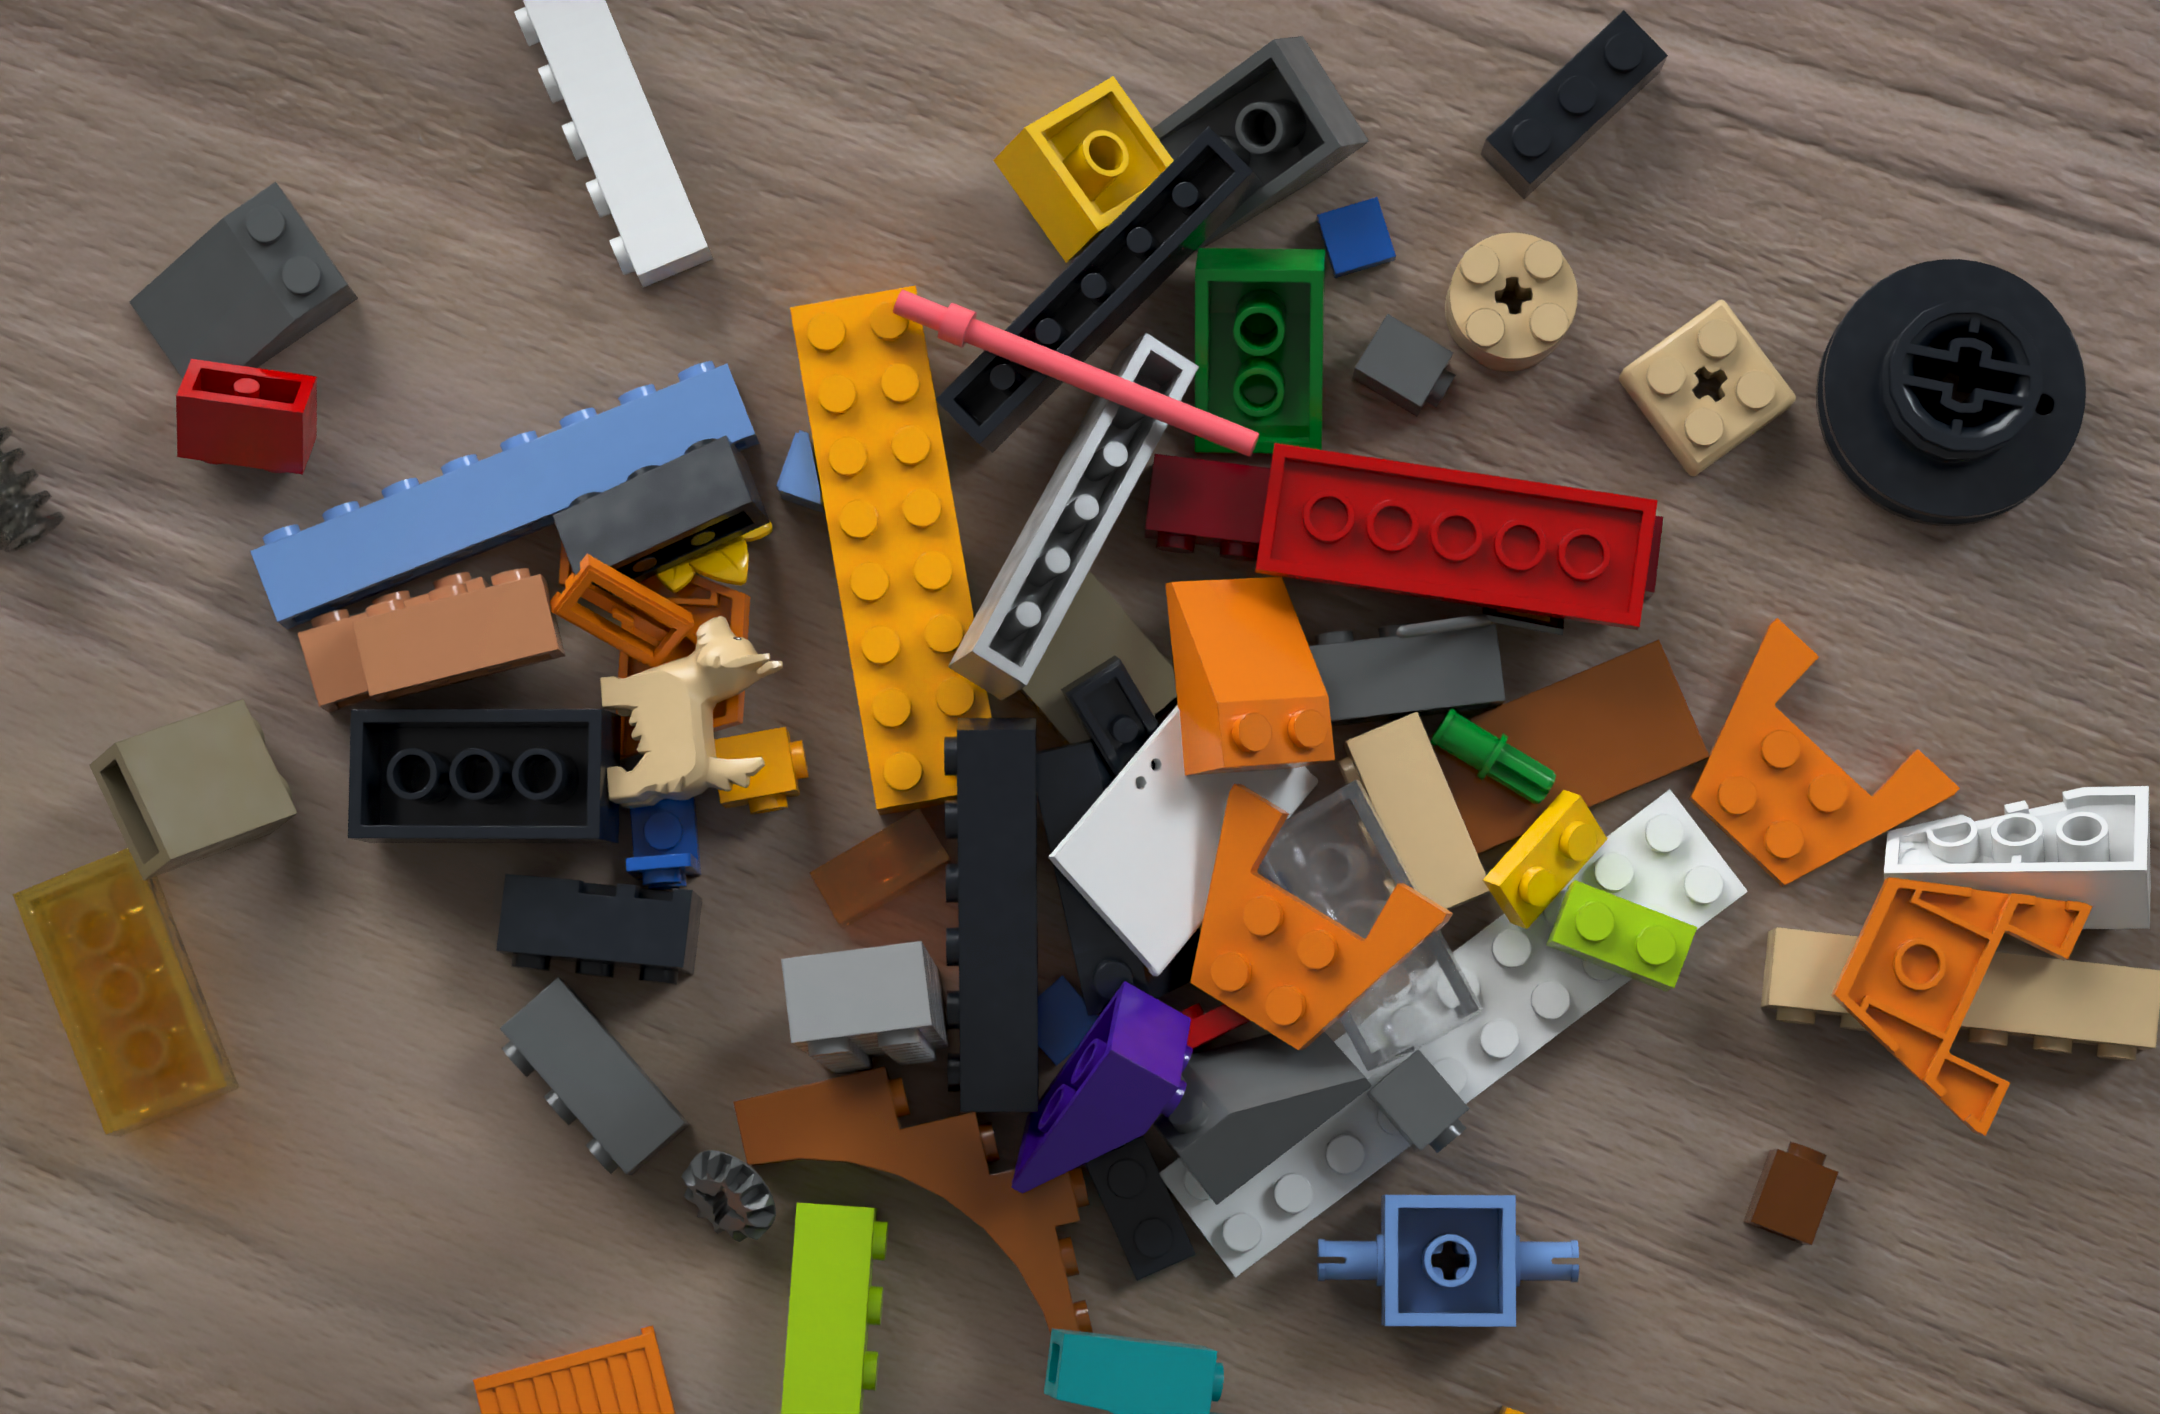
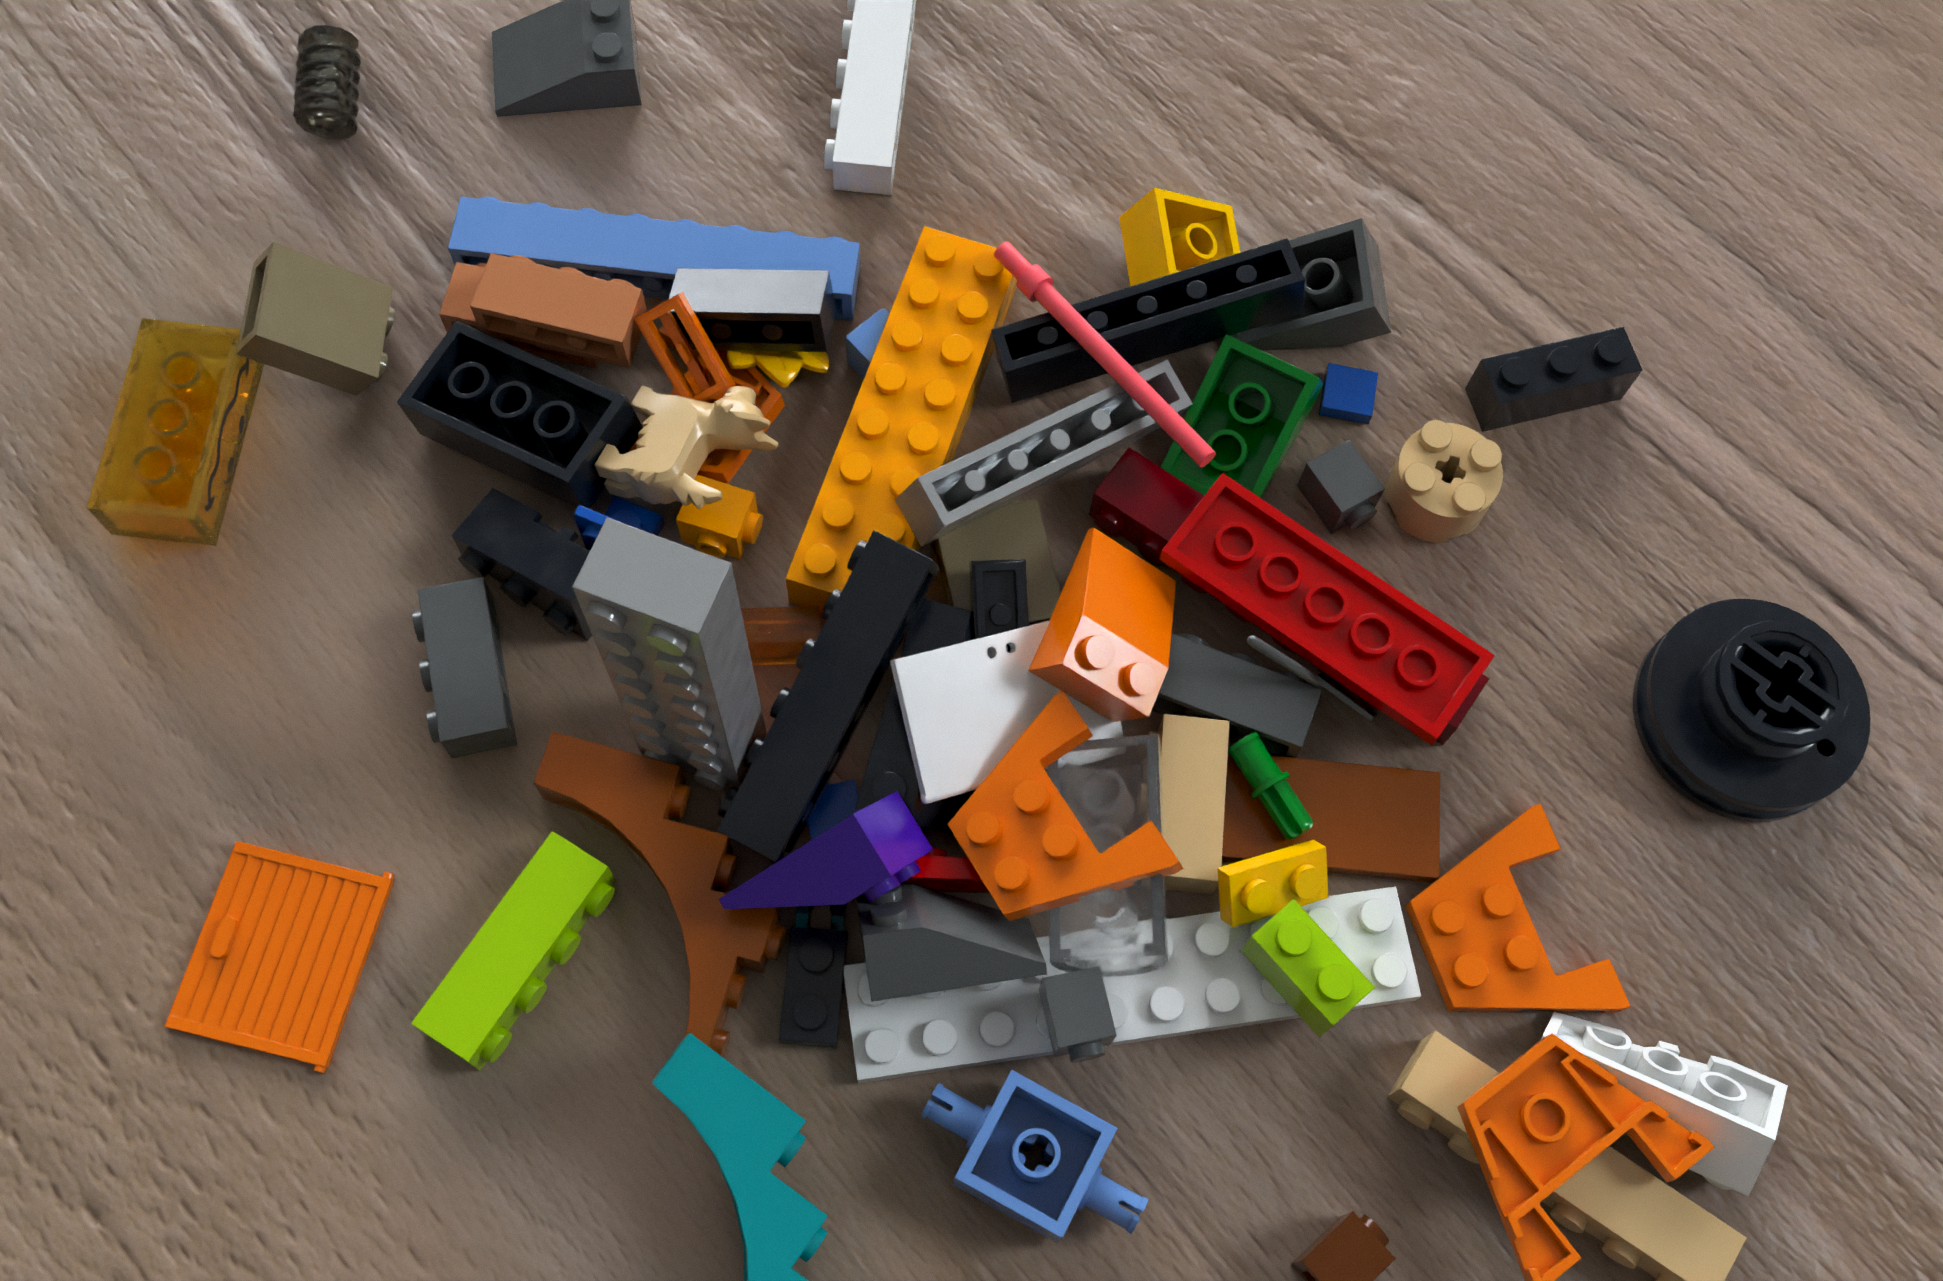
camera: 20 degrees right, 15 degrees down
(246, 416) = (516, 122): red brick -> none
(749, 1204) = (508, 802): dark grey gear -> none
(1704, 429) = (1544, 639): tan brick -> none

